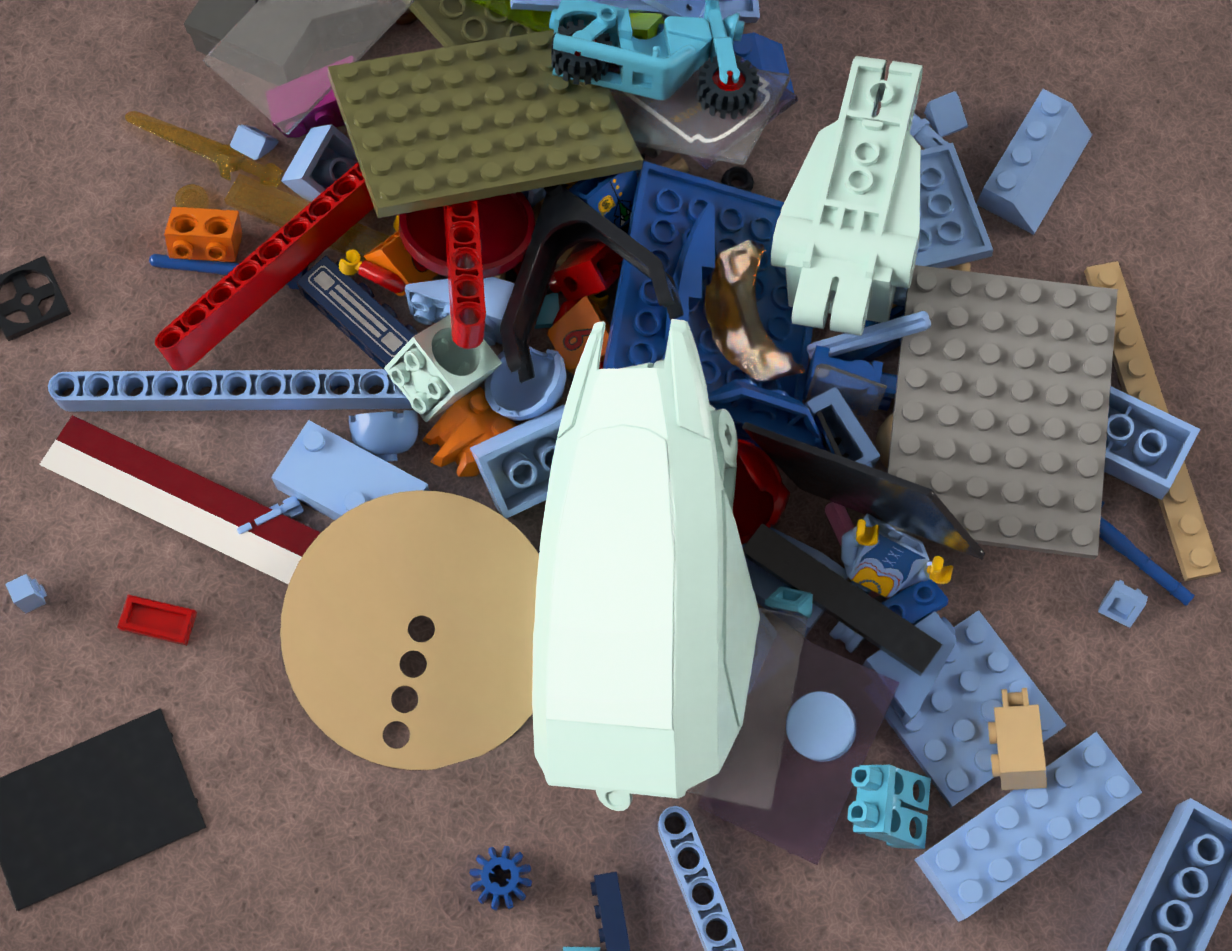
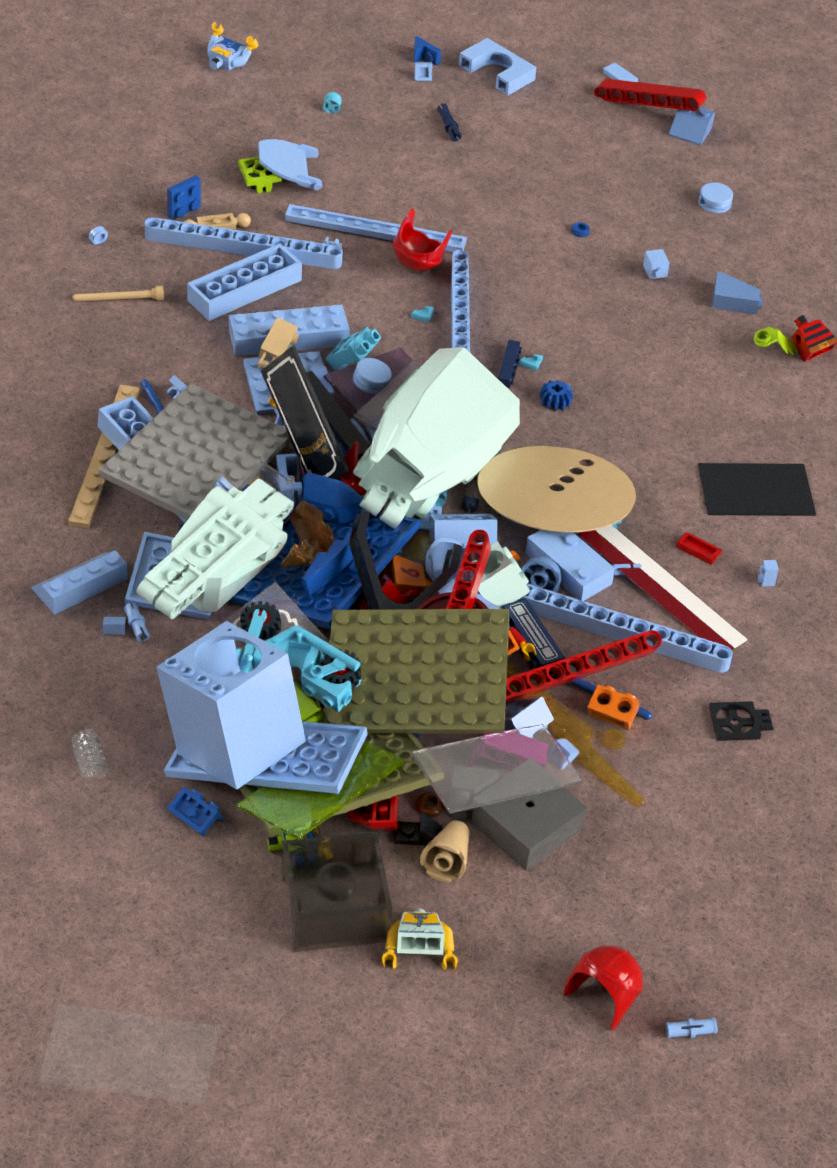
camera: 160 degrees left, 25 degrees down
(791, 602) = (361, 417): medium azure slope -> none

